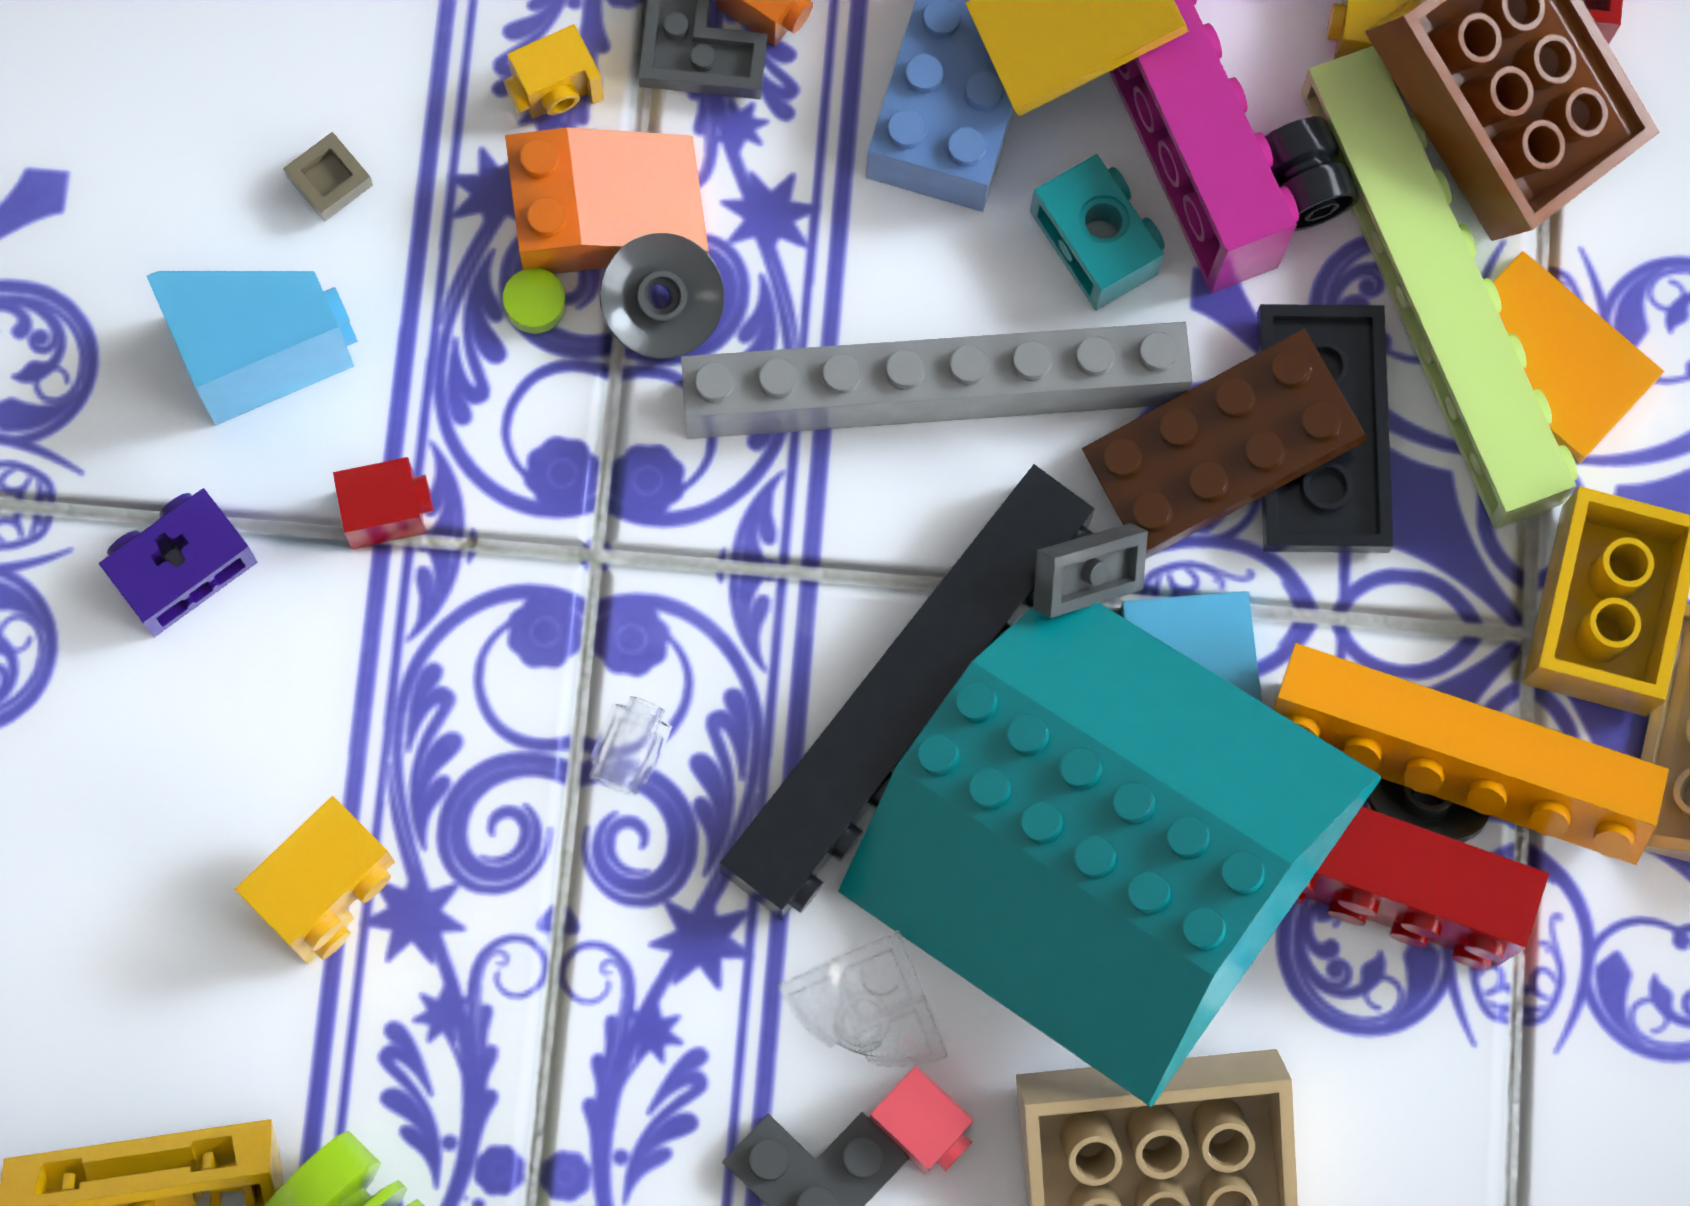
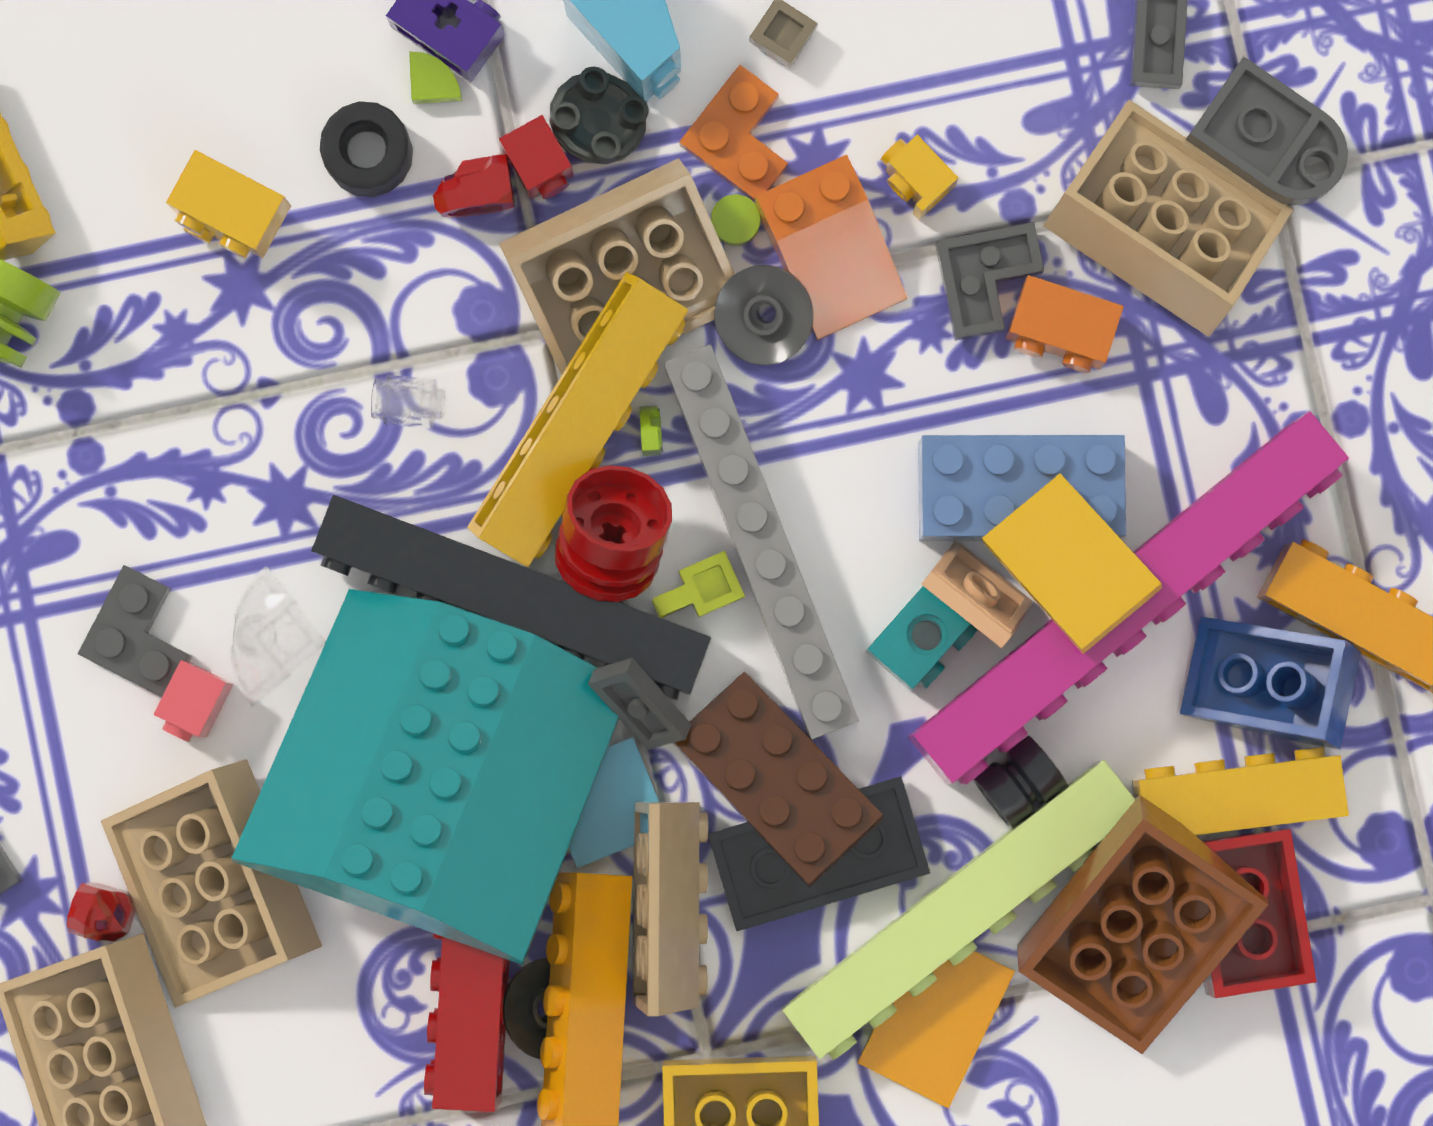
camera: 80 degrees right, 10 degrees up
(238, 603) = (432, 80): none -> lime tile
(285, 665) = (356, 119): none -> black tyre
(354, 417) = (598, 117): none -> pearl dark grey dish
(393, 583) = (476, 188): none -> red rock
(429, 284) = (724, 138): none -> orange plate
(552, 446) = (643, 228): none -> tan slope
(720, 541) = (578, 419): none -> yellow brick
(765, 473) = (651, 430): none -> lime tile
(875, 536) = (613, 533): none -> red wheel
(967, 462) = (705, 585): none -> neon yellow plate
(1072, 148) = (978, 593): none -> light nougat tile
(1347, 614) = (667, 907): none -> tan slope

